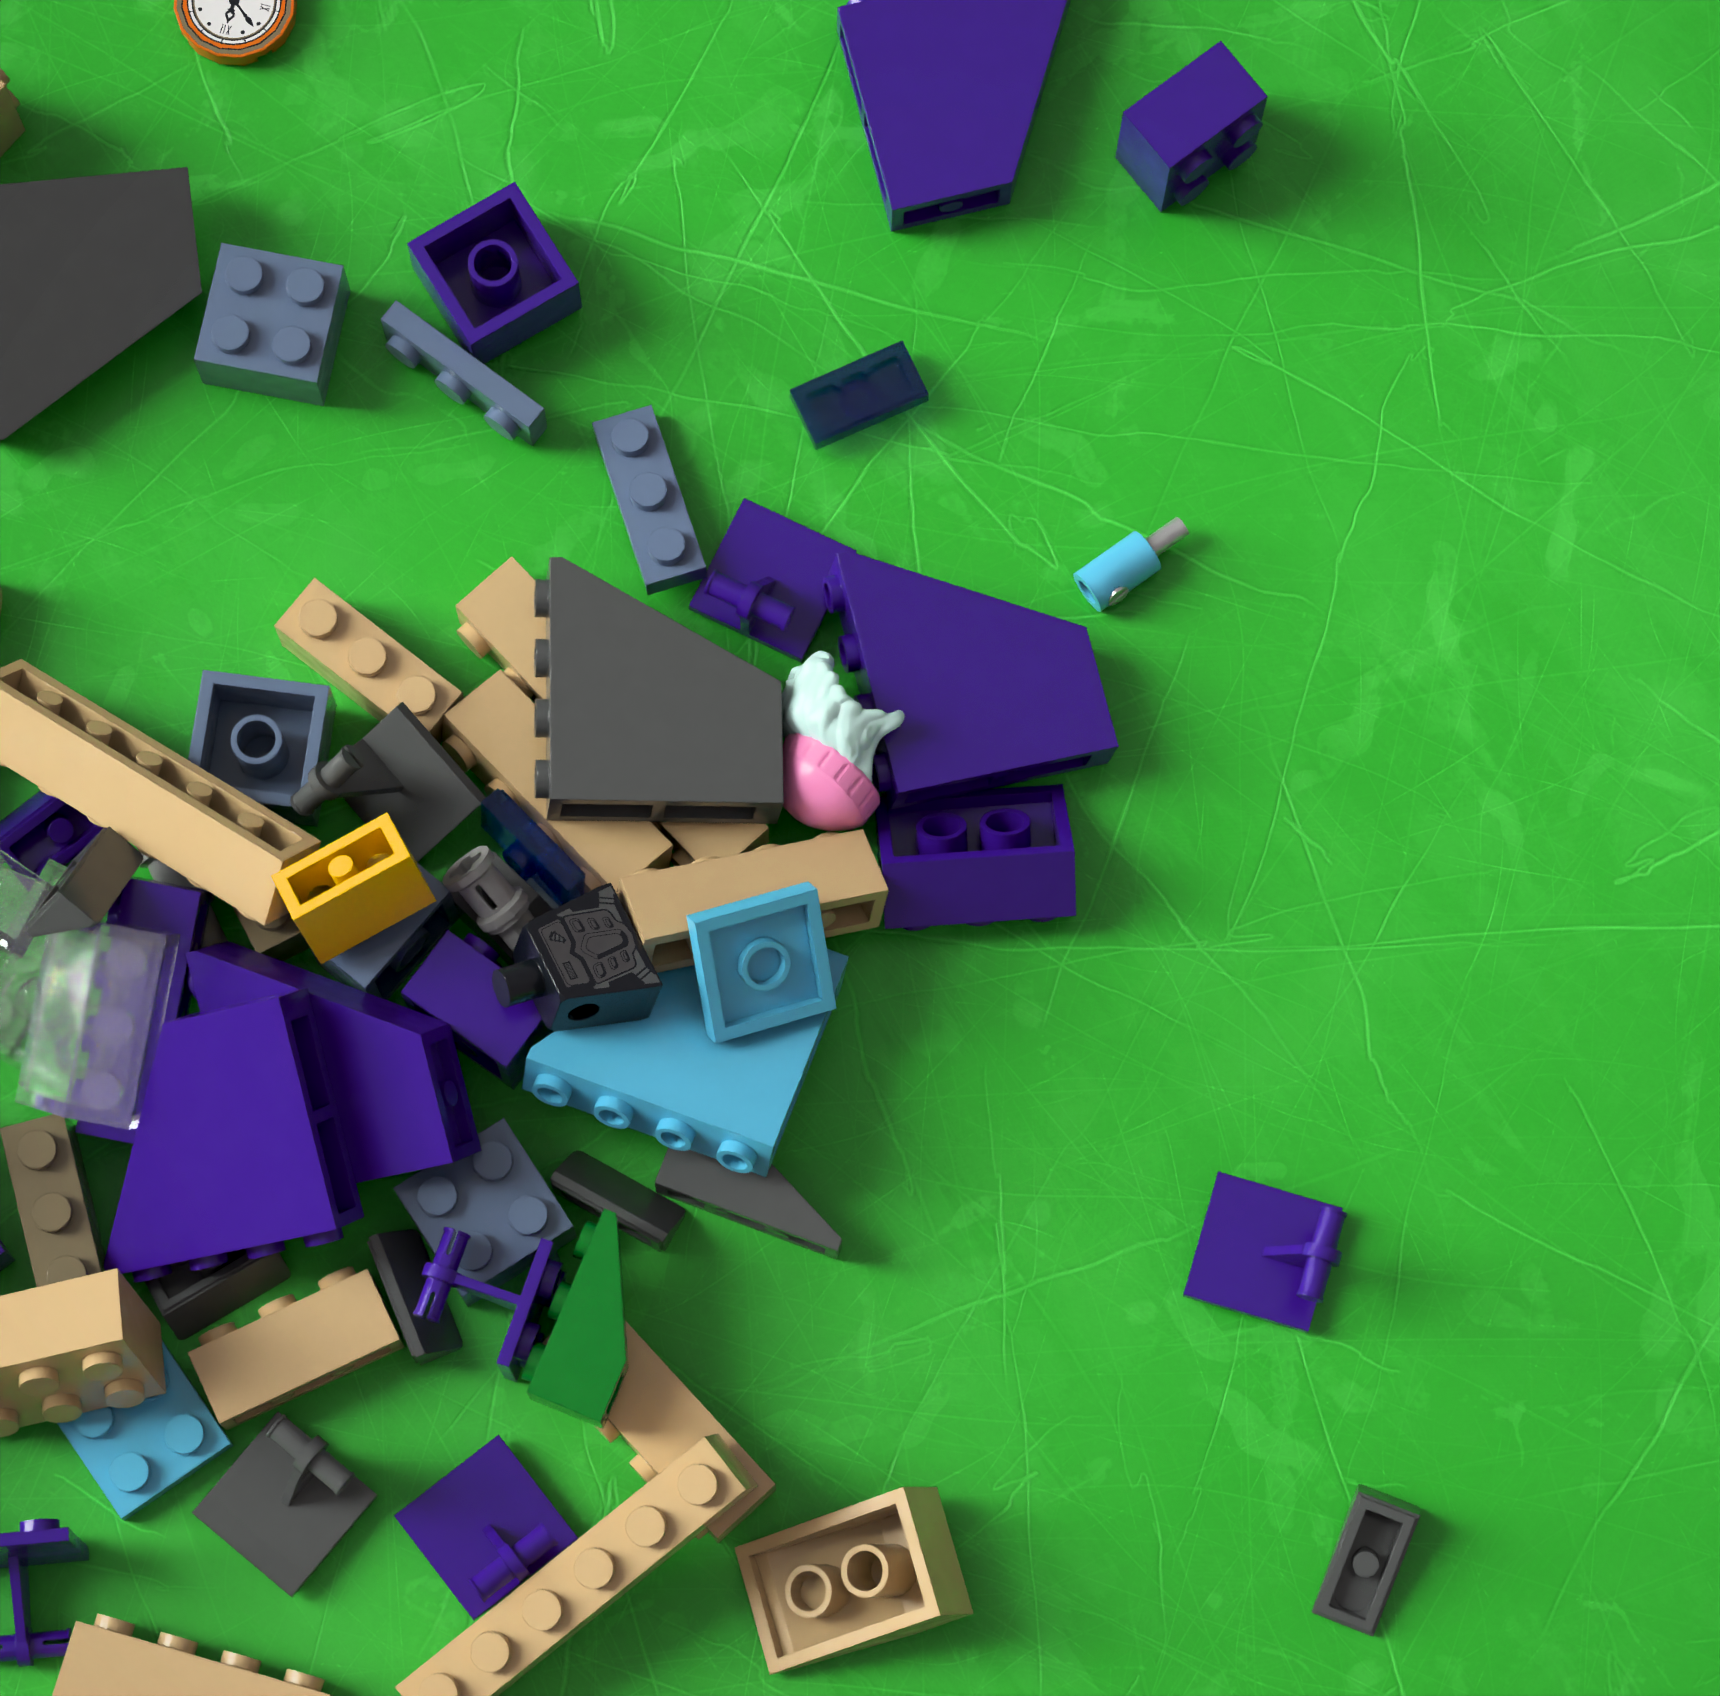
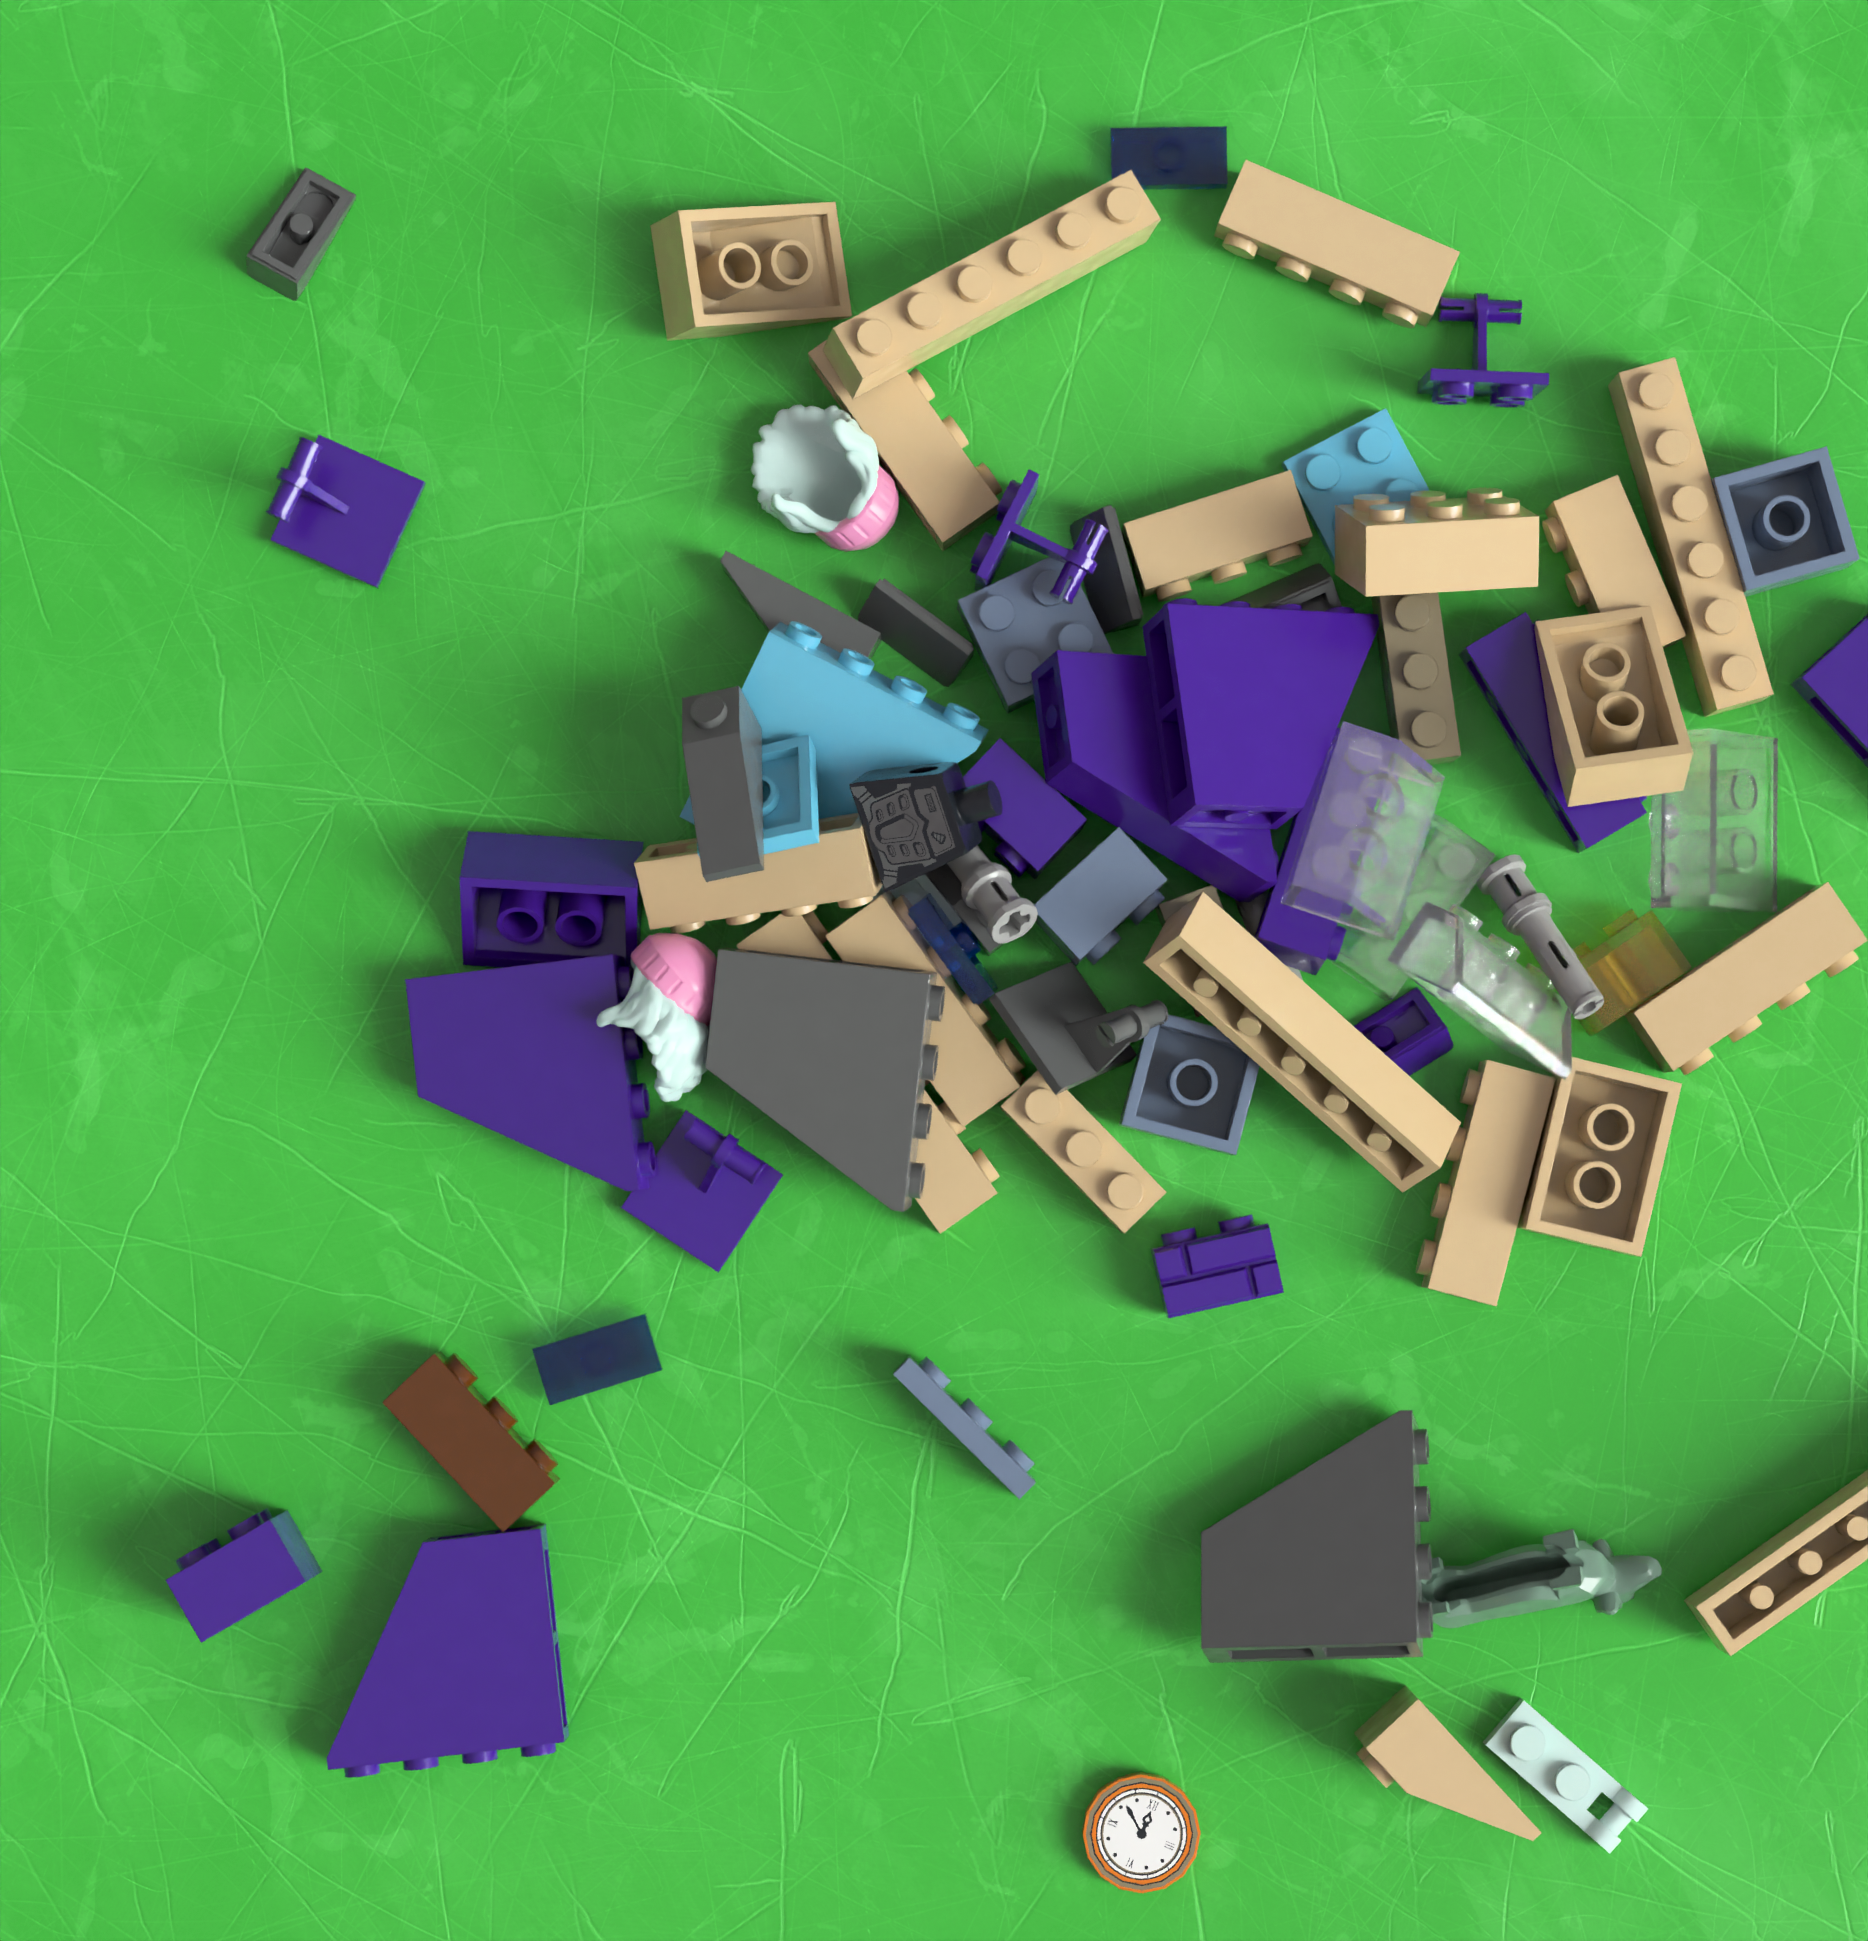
camera: 170 degrees left, 10 degrees up
(87, 886) = (1361, 950): dark grey slope -> none
(214, 566) = (1216, 1268): none -> dark purple brick
(272, 324) = (1138, 1497): sand blue brick -> none
(285, 1503) = (1241, 403): dark grey plate -> none
(353, 888) = (1117, 905): yellow brick -> none
(486, 1527) = (1065, 355): dark purple plate -> none
(495, 274) = (923, 1515): dark purple brick -> none
(588, 1346) = (957, 483): green slope -> none
(649, 500) = (806, 1282): sand blue plate -> none
(740, 1349) = (824, 477): none -> light aqua hair
(797, 967) = (724, 781): none -> dark grey slope
(977, 297) = (473, 1438): none -> reddish brown brick
(1126, 565) = (371, 1162): medium azure piece -> none

